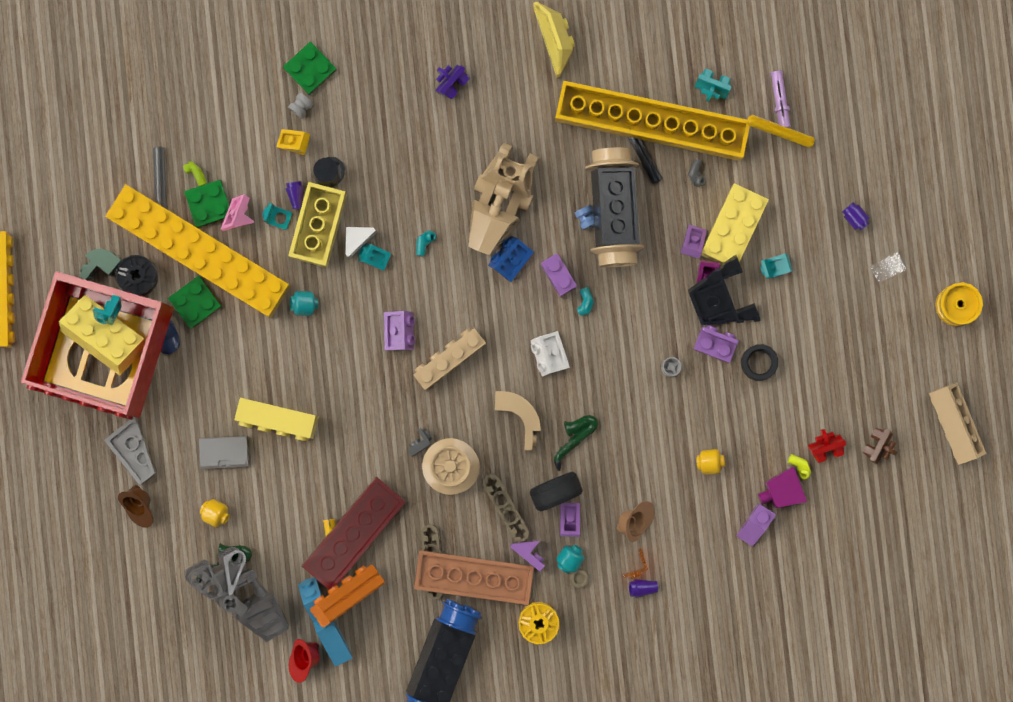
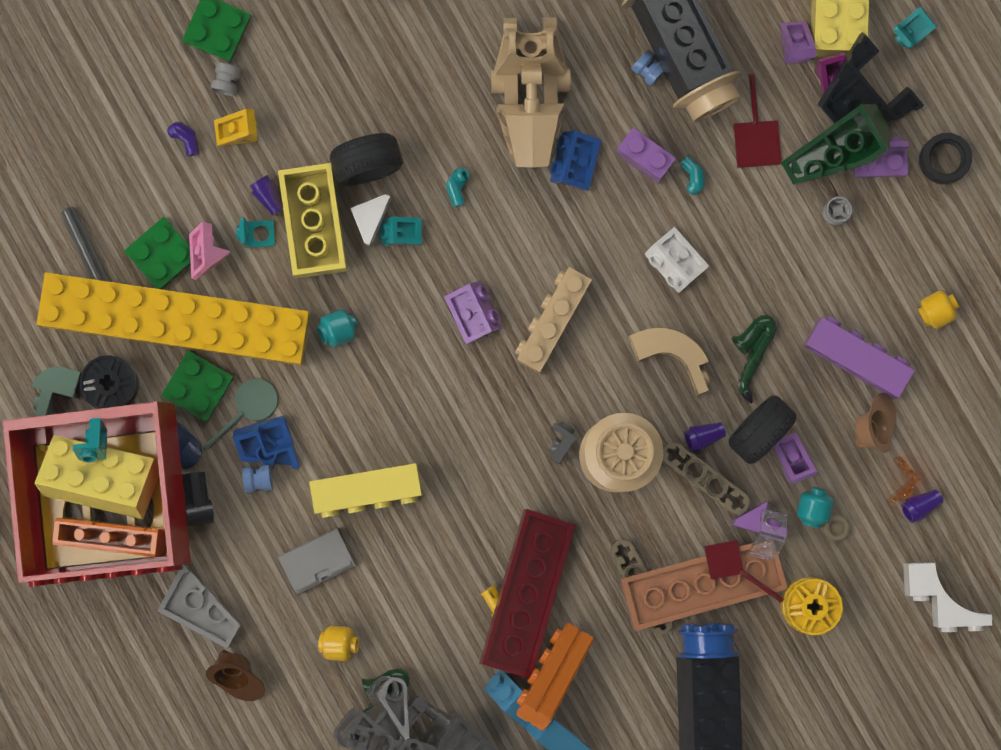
camera: 25 degrees left, 0 degrees up
(93, 377) = (109, 537): none -> orange brick
(161, 379) = (197, 504): none -> black piece
(197, 172) = (130, 219): lime arm -> none
(207, 381) = (257, 479): none -> medium blue wheel
(224, 359) = (267, 442): none -> blue slope
(228, 328) = (254, 400): none -> sand green piece
(259, 132) = (185, 134): none -> dark purple arm
(328, 171) = (297, 147): black hat -> none
(370, 199) = (366, 159): none -> black tyre
(494, 568) = (725, 561): none -> dark red piece
(517, 479) = (704, 435): none -> dark purple cone
(528, 566) = (769, 540): none -> clear bracket
(619, 640) = (922, 581): none -> white arch
(639, 297) = (757, 141): none -> dark red piece
(642, 470) = (858, 357): none -> medium lavender brick
(693, 325) = (844, 146): none -> dark green wedge

